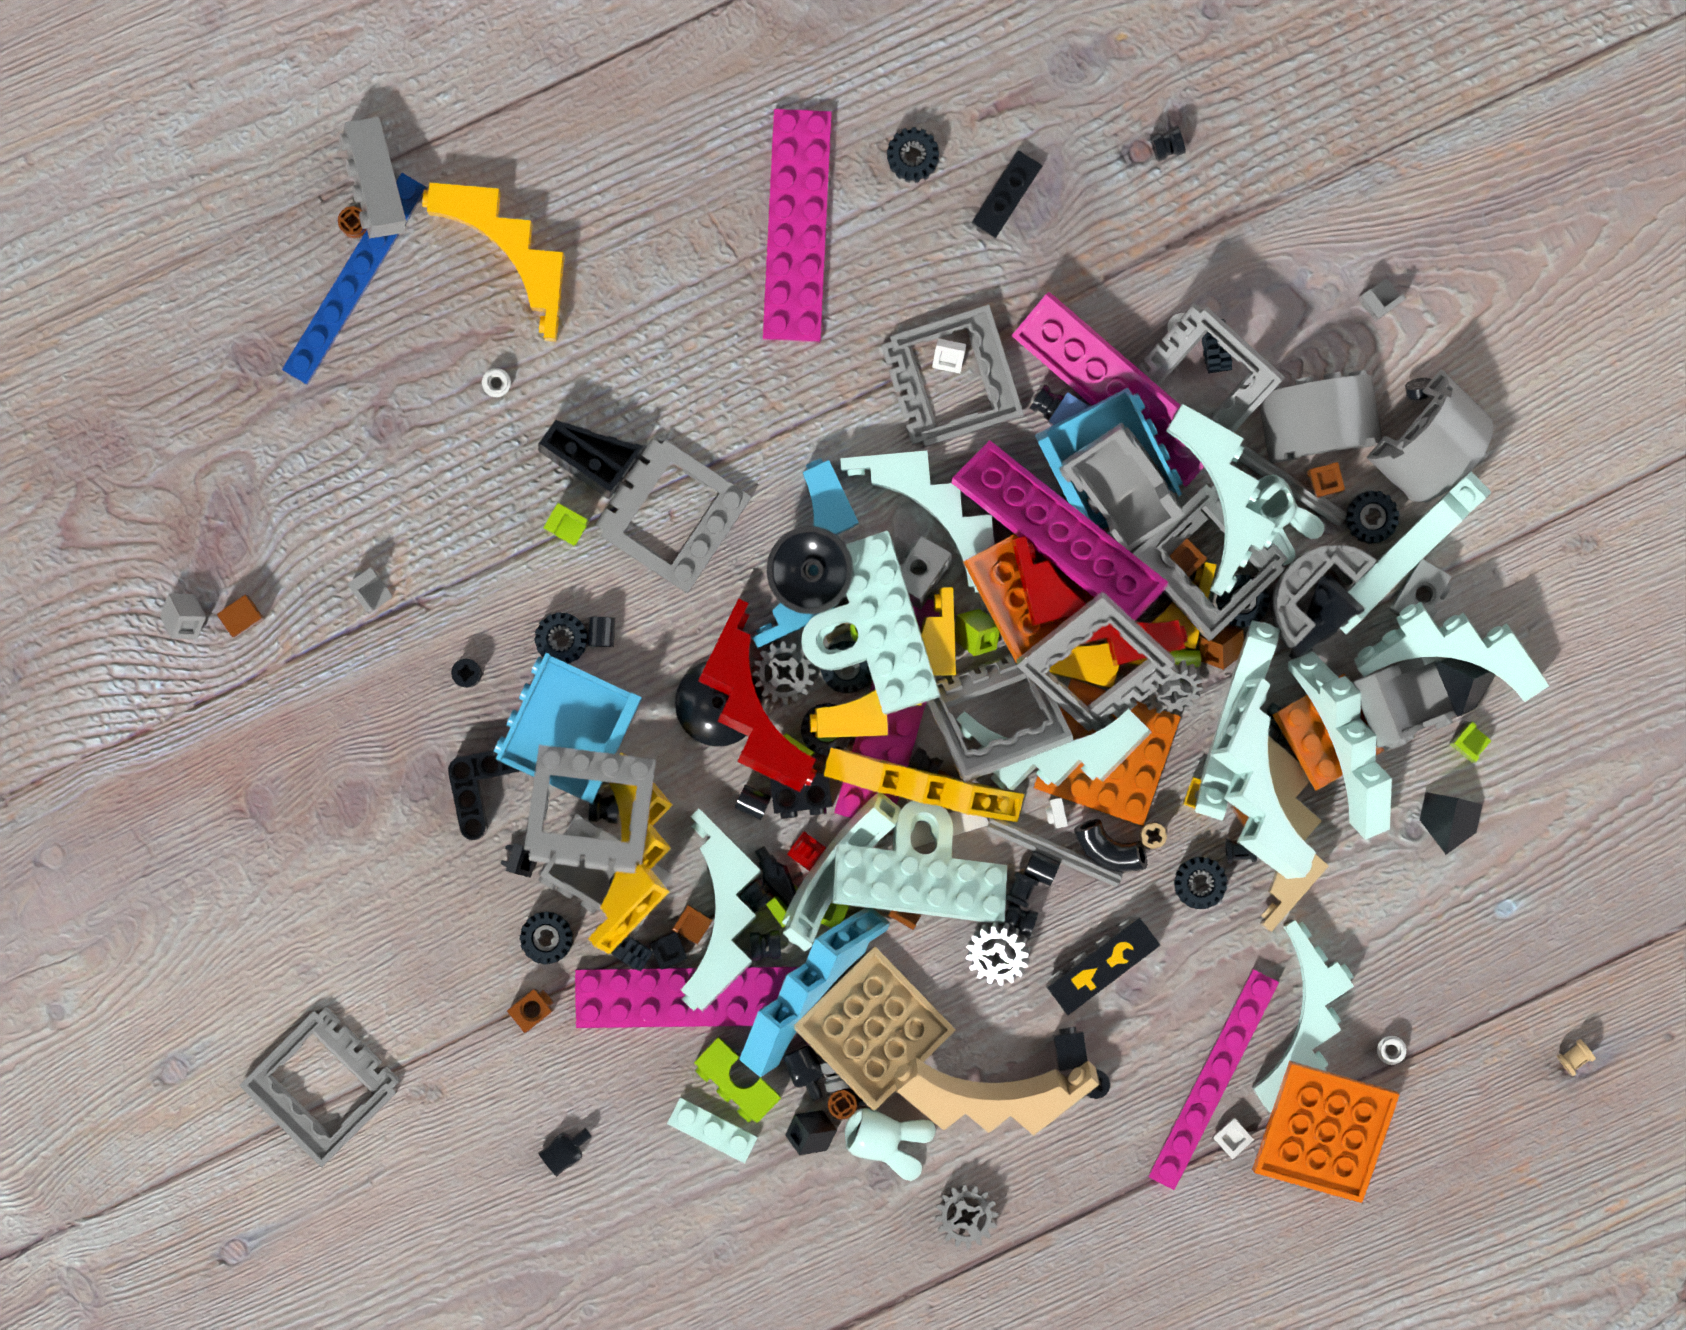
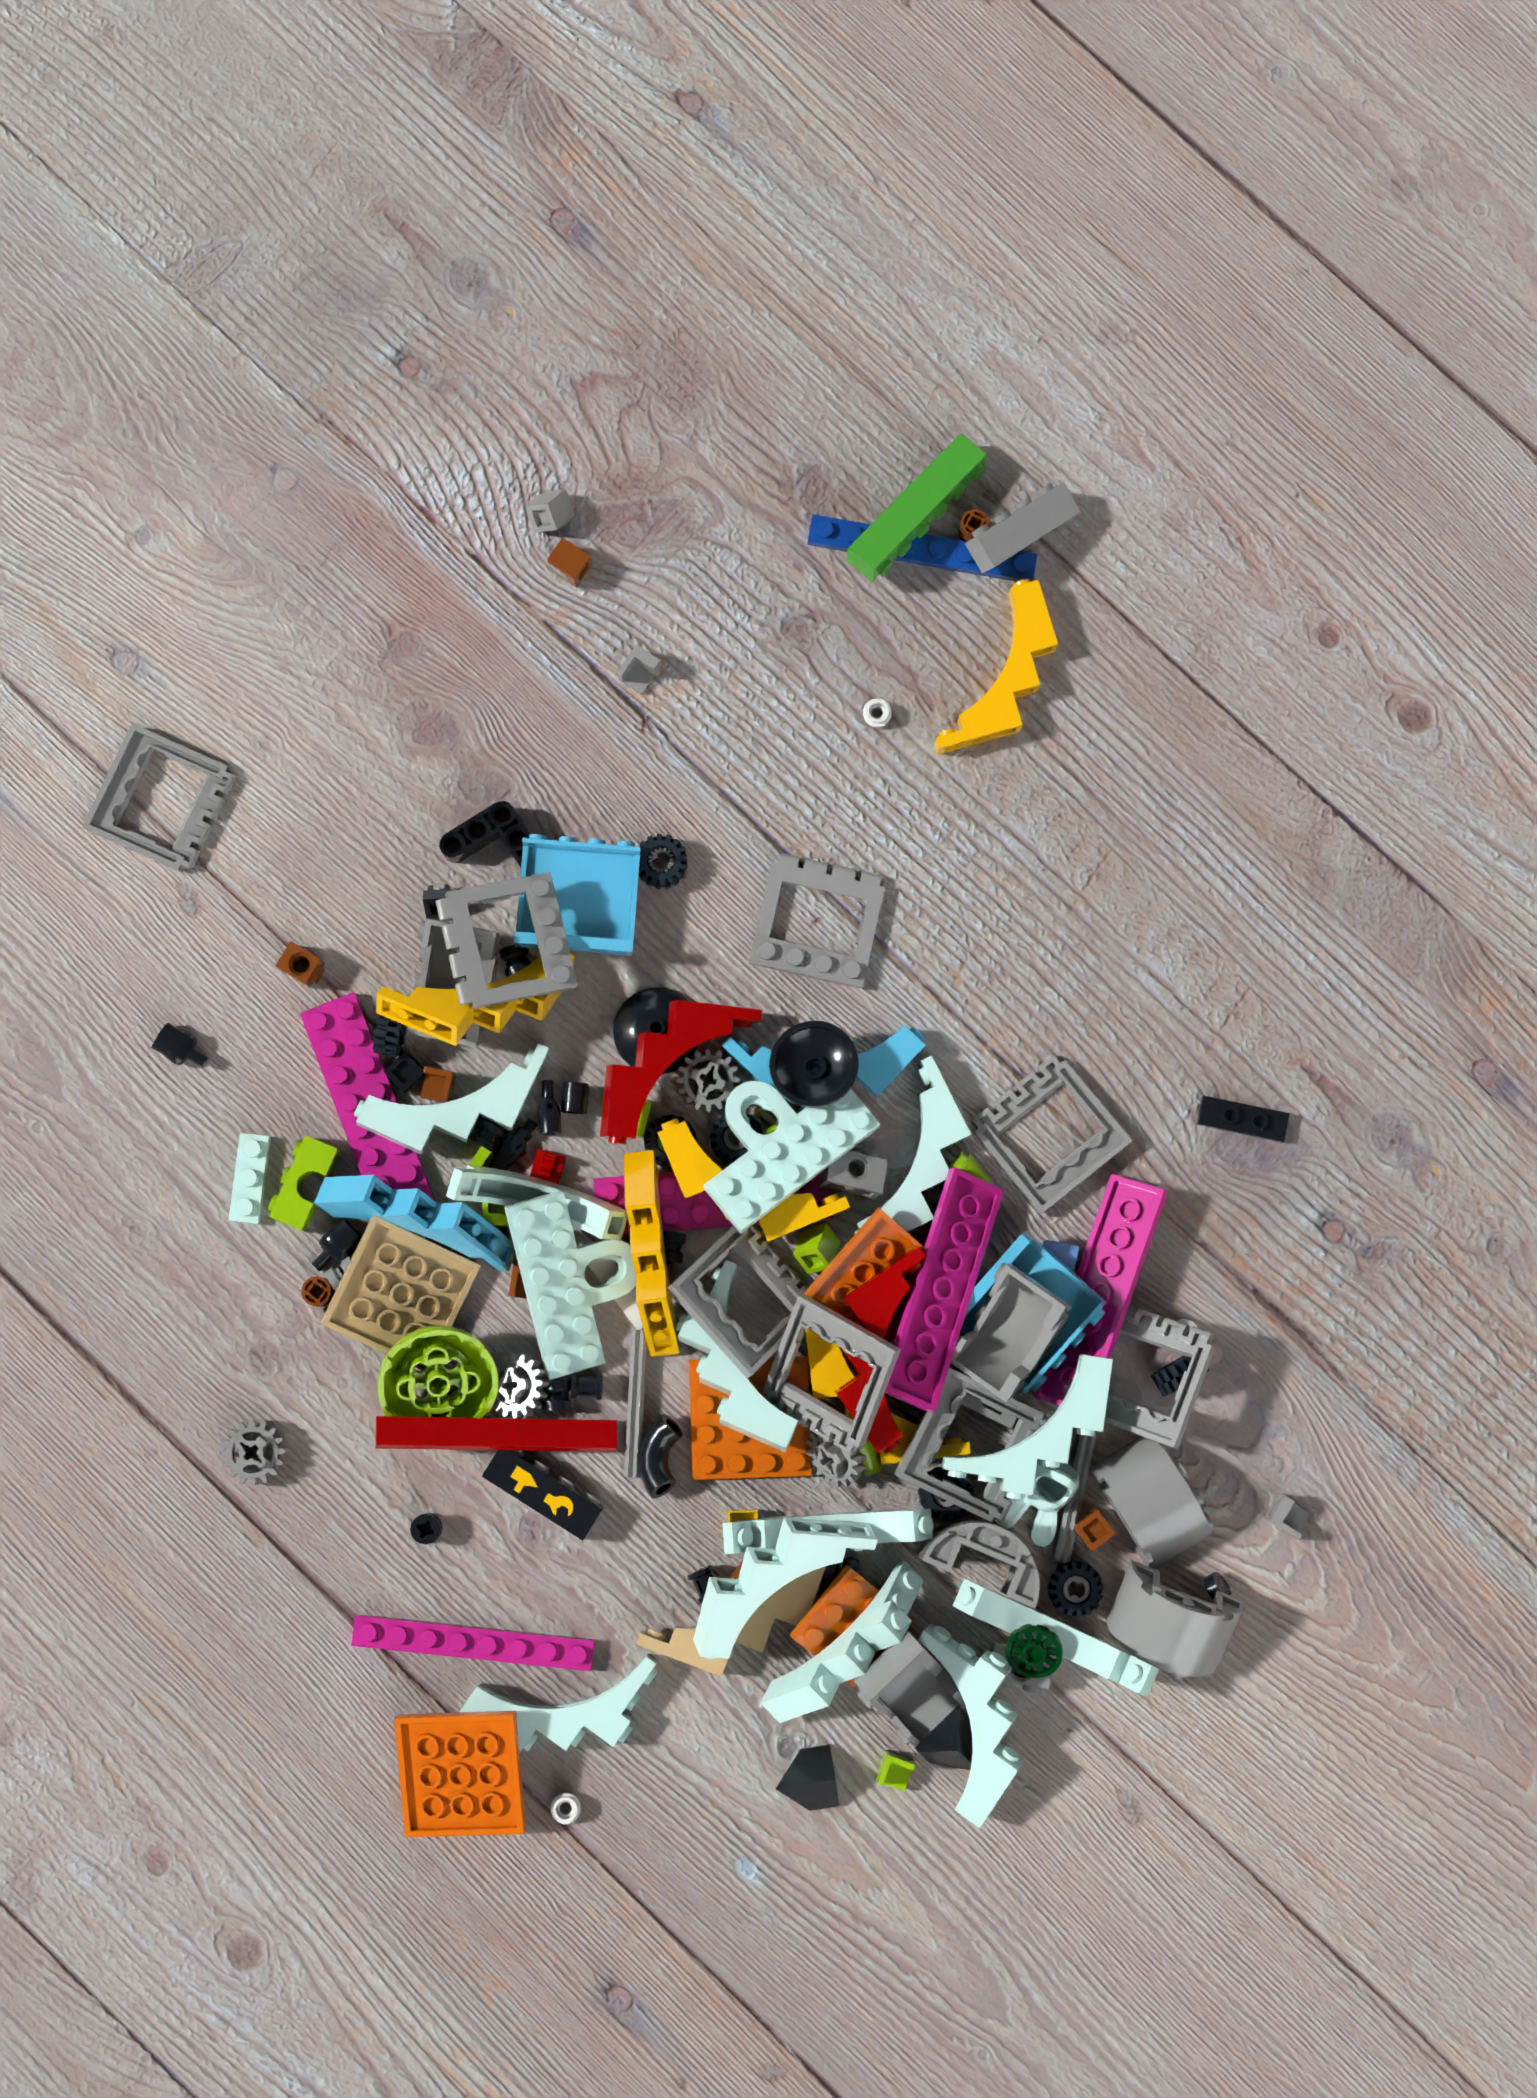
camera: 65 degrees right, 5 degrees down
(316, 269) = (916, 507): none -> bright green brick
(471, 673) = (596, 793): black wheel -> none
(532, 932) = (374, 968): black bush -> none
(566, 524) = (769, 825): lime panel -> none
(590, 456) = (841, 825): black wedge -> none
(601, 631) = (682, 896): black beam -> none
(756, 830) = (549, 1118): none -> black piece
(758, 945) = (440, 1155): black wheel -> none
(797, 225) = (1134, 934): dark pink plate -> none
(802, 802) = (594, 1143): black brick -> none
(811, 1132) = (280, 1272): black panel -> none
(880, 1138) = (299, 1337): light aqua piece -> none
(902, 144) = (1248, 1002): black bush -> none
(949, 355) = (1068, 1122): white plate -> none
(954, 463) = (969, 1165): none -> lime cone
(996, 1029) = (435, 1346): none -> lime brick
(1028, 1101) = (383, 1472): tan arch -> none
(1035, 987) = (495, 1434): none -> red tile
(1042, 868) = (614, 1397): black beam -> none
(1046, 402) = (1061, 1230): black wheel -> none
(1055, 813) = (672, 1390): white plate -> none
(1070, 1048) = (450, 1491): black brick -> none
(1154, 844) = (678, 1497): tan bush -> none
(1161, 145) = (1349, 1247): black wheel -> none
(1188, 557) = (966, 1423): dark orange panel -> none
(1214, 878) = (668, 1569): black bush -> none
(1223, 648) = (893, 1491): dark orange panel -> none
(1233, 1138) = (422, 1684): white plate -> none
(1329, 610) = (969, 1580): black wing -> none
(1413, 576) = (1034, 1651): none -> dark green wheel
(1576, 1057) = (625, 1997): tan bush -> none

